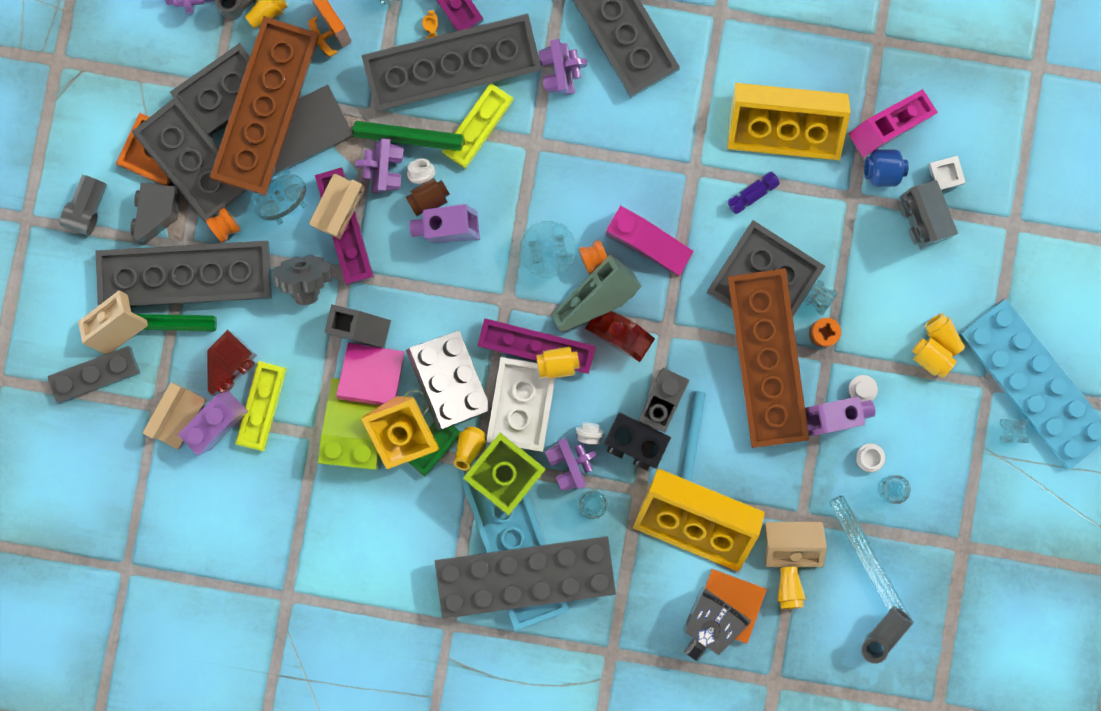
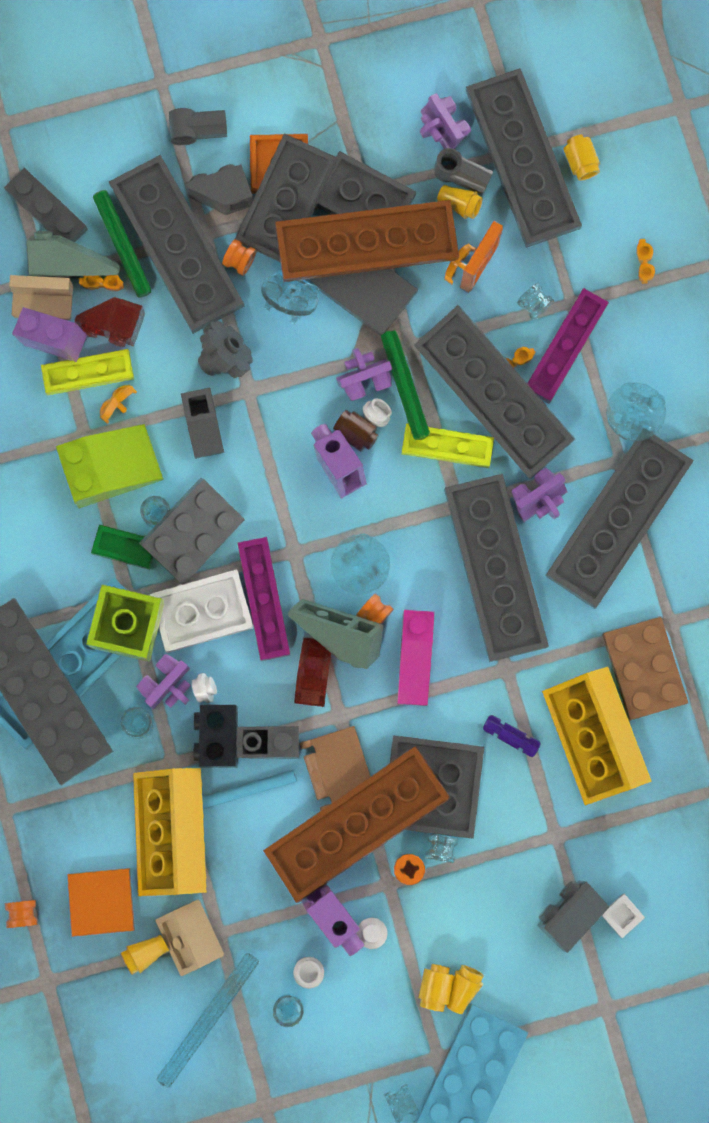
camera: 60 degrees right, 5 degrees down
(110, 324) = (97, 200): tan panel -> none
(147, 380) = (62, 257): none -> sand green slope
(181, 363) = (111, 282): none -> light orange piece
(296, 388) = (115, 401): none -> light orange piece
(337, 206) = (306, 351): tan panel -> none
(351, 246) = (291, 367): magenta plate -> none
(370, 374) = (163, 457): tile -> none
(399, 431) = (118, 506): yellow slope -> none
(469, 446) = (138, 580): yellow cone -> none
(557, 363) = (255, 624): yellow brick -> none
(604, 135) = (496, 568): none -> dark grey plate
(708, 352) = (336, 764): none -> medium nougat piece
(708, 678) = (21, 914): none -> orange wheel
(712, 625) = (73, 892): dark grey torso -> none
(749, 53) = (645, 668): none -> medium nougat plate
(885, 168) = (597, 852): blue head -> none
(886, 633) = (142, 1068): dark grey piece -> none
(892, 122) = (646, 838): dark pink slope -> none

